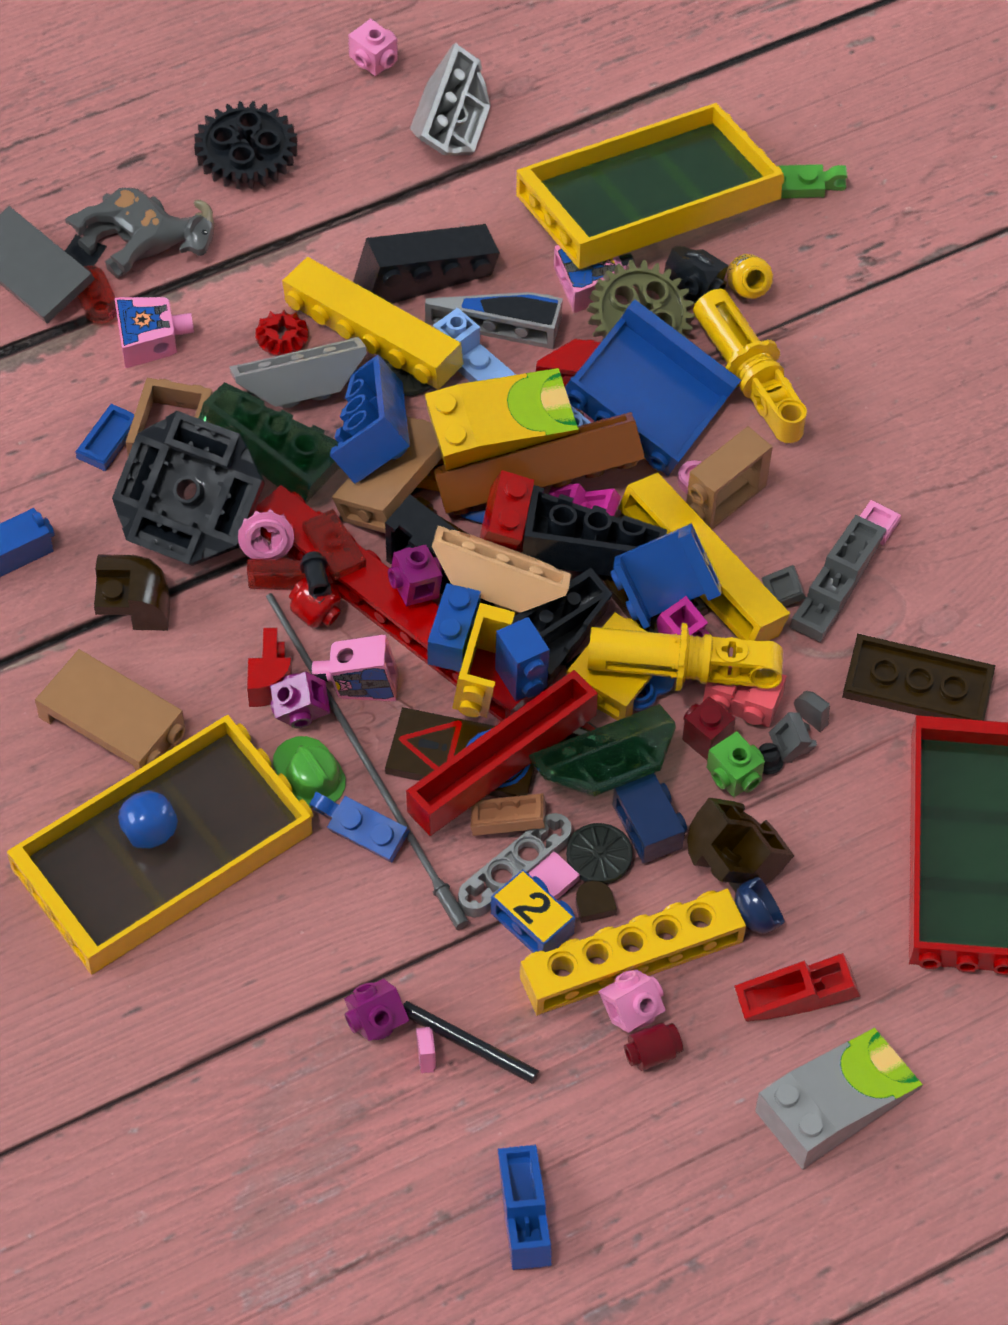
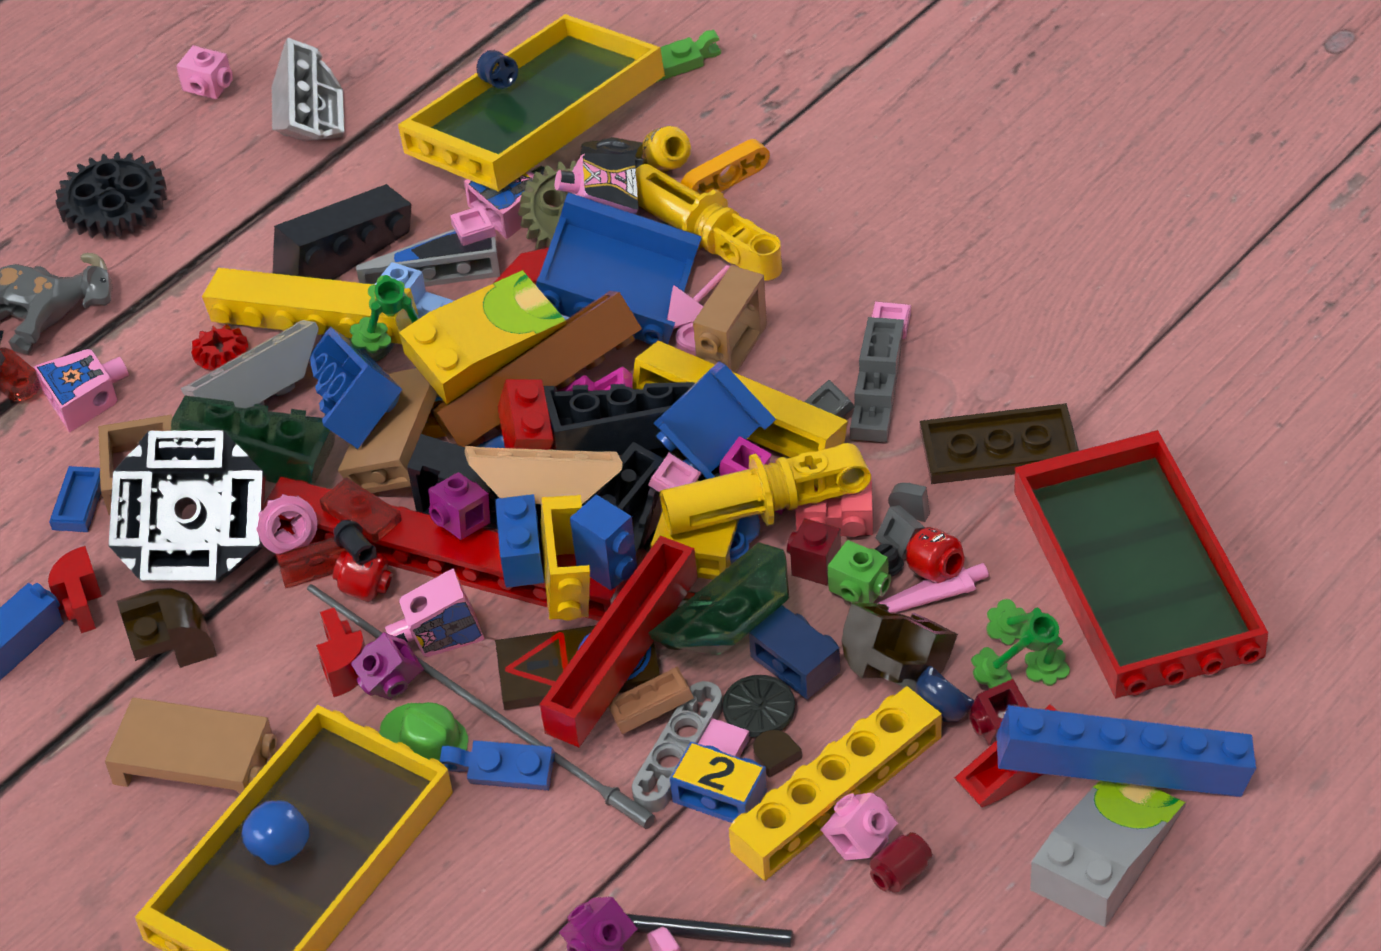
camera: 15 degrees left, 10 degrees down
(71, 520) = (73, 585): none -> red brick
(431, 355) = (388, 298): none -> plant
(543, 296) = (473, 225): none -> bright pink tile
(612, 613) = (673, 473): none -> bright pink tile
(634, 148) = (503, 75): none -> dark blue wheel
(672, 296) = (603, 179): none -> torso
(700, 445) = (684, 308): none -> bright pink piece
(796, 943) = (991, 706): none -> dark red brick
(805, 801) = (930, 592): none -> bright pink bar
(809, 772) = (935, 555): none -> red head
(811, 313) = (744, 162): none -> light orange beam
(858, 886) = (1036, 632): none -> bright green plant
(885, 1023) = (1125, 751): none -> blue brick

